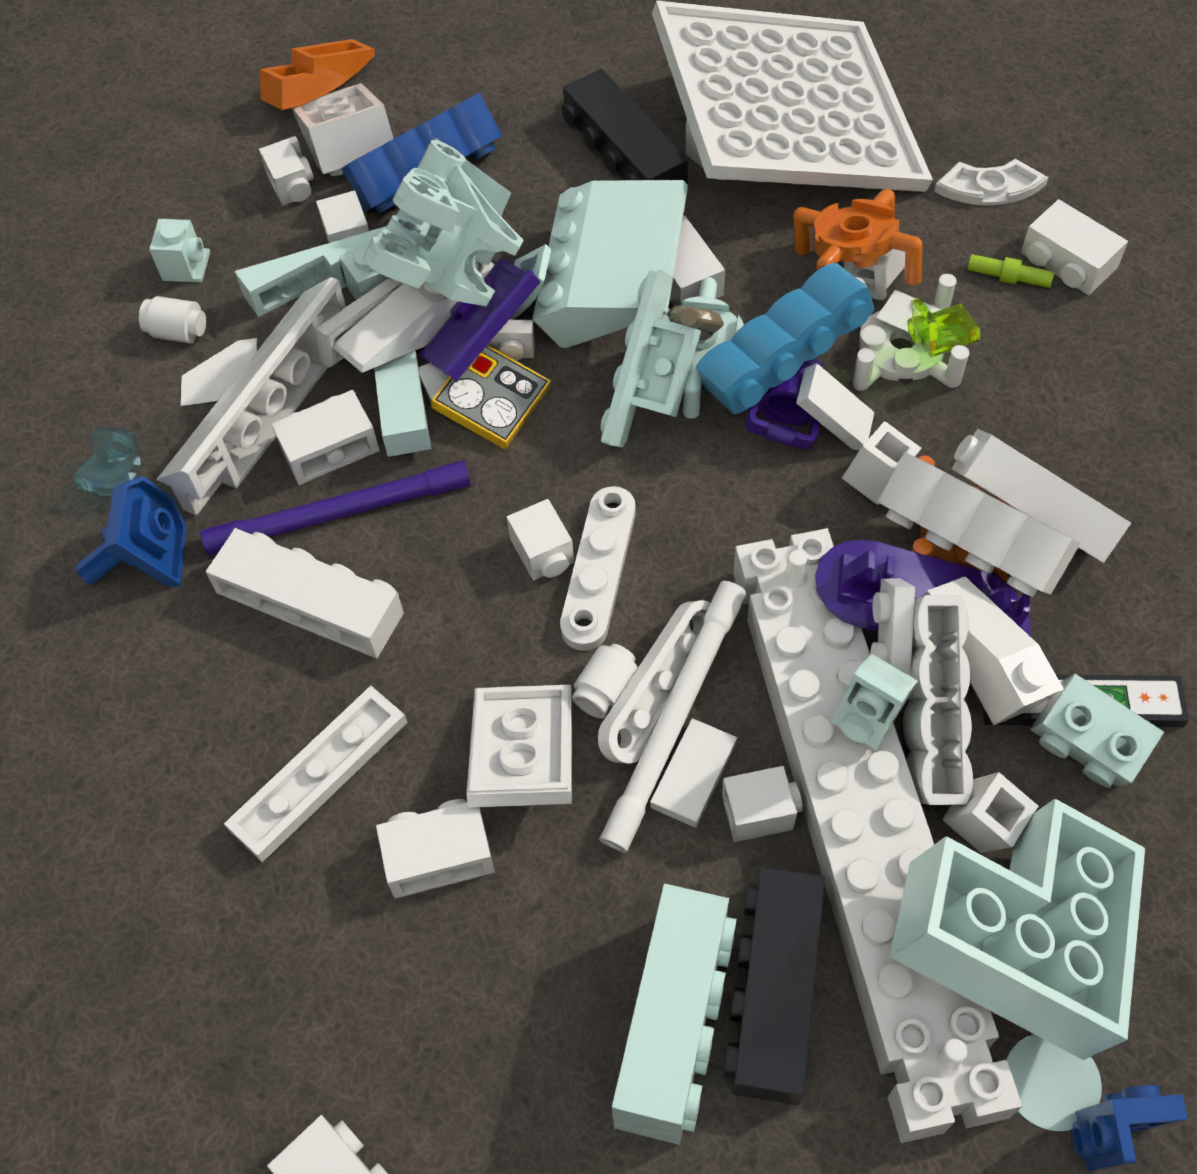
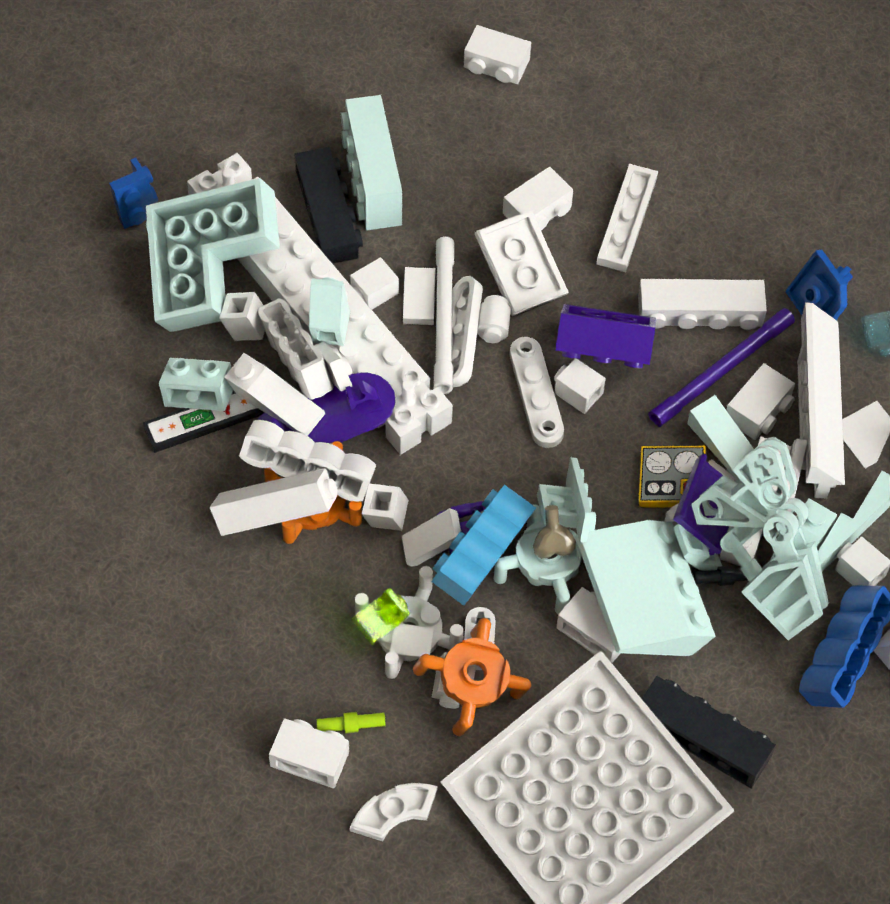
camera: 150 degrees right, 0 degrees up
(469, 569) = (606, 335): none -> dark purple brick

